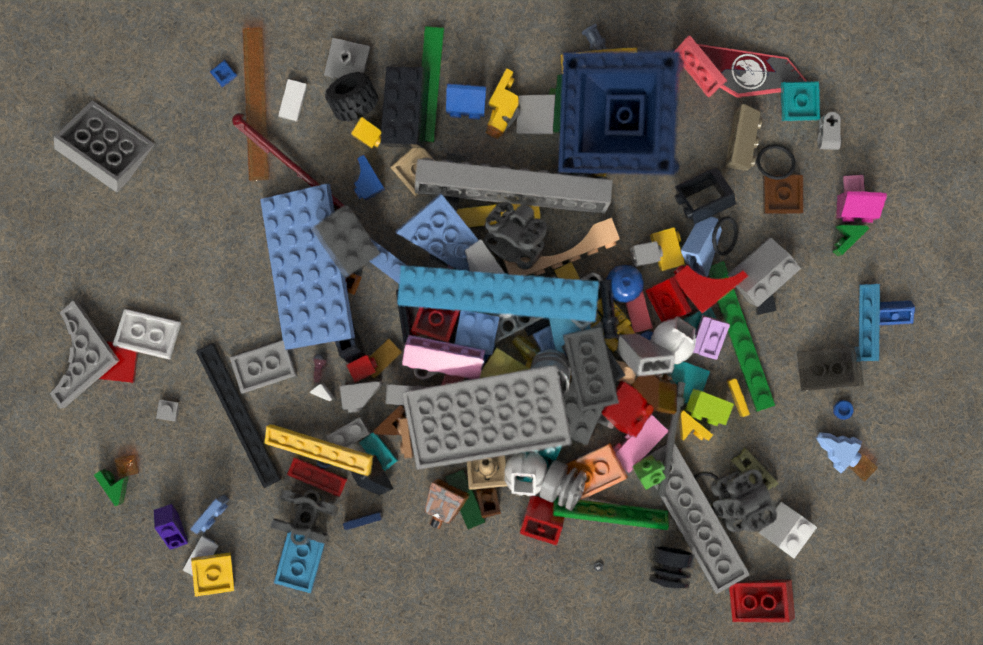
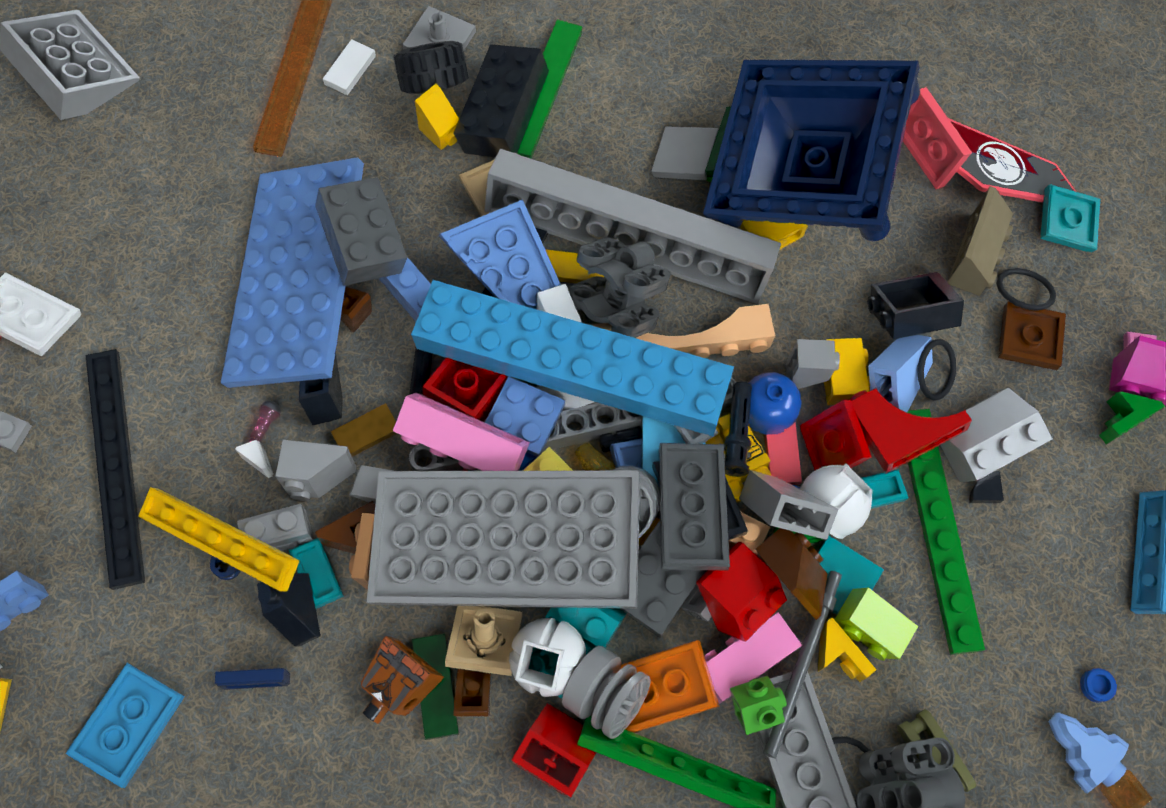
camera: 10 degrees right, 20 degrees down
(223, 73) = (267, 17): blue tile -> none
(262, 366) = (179, 402): light grey tile -> none
(268, 147) = (265, 70): dark red bar -> none
(298, 526) = (164, 629): dark grey piece -> none
(317, 476) = (203, 591): red tile -> none
(362, 368) = (331, 428): red brick -> none
(368, 183) = (420, 184): blue arch -> none
(465, 101) = (590, 109): blue slope -> none
(505, 107) = (641, 132): yellow plate -> none
(710, 336) = (893, 514): lavender plate -> none
(738, 397) = (925, 619): yellow tile -> none
(829, 135) = (1111, 265): light grey piece -> none
(830, 369) = (1084, 610): clear smoke slope -> none

